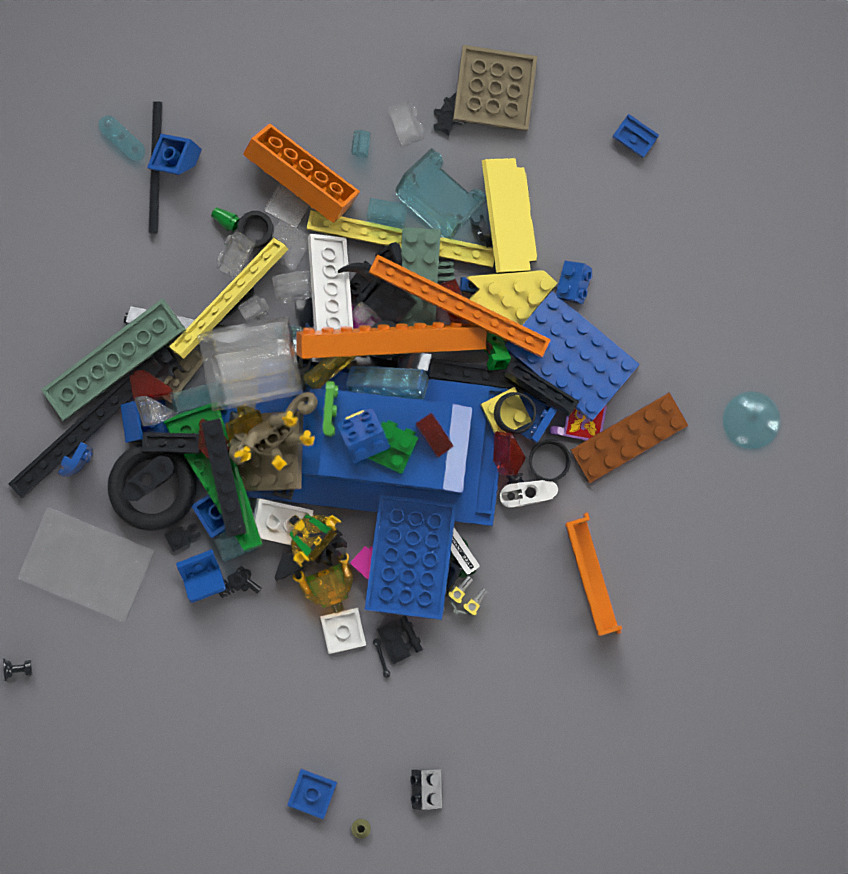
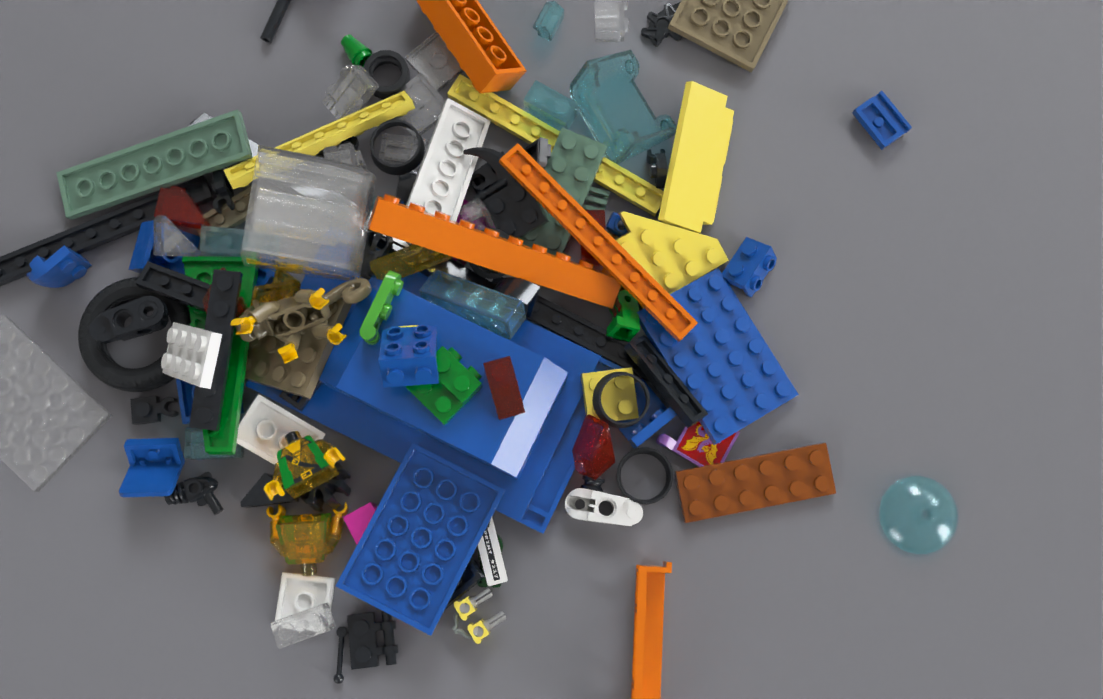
camera: 20 degrees right, 5 degrees down
(208, 487) = (191, 354): none -> white plate
(291, 302) = (399, 169): none -> black tyre
(350, 645) = (303, 625): none -> clear brick

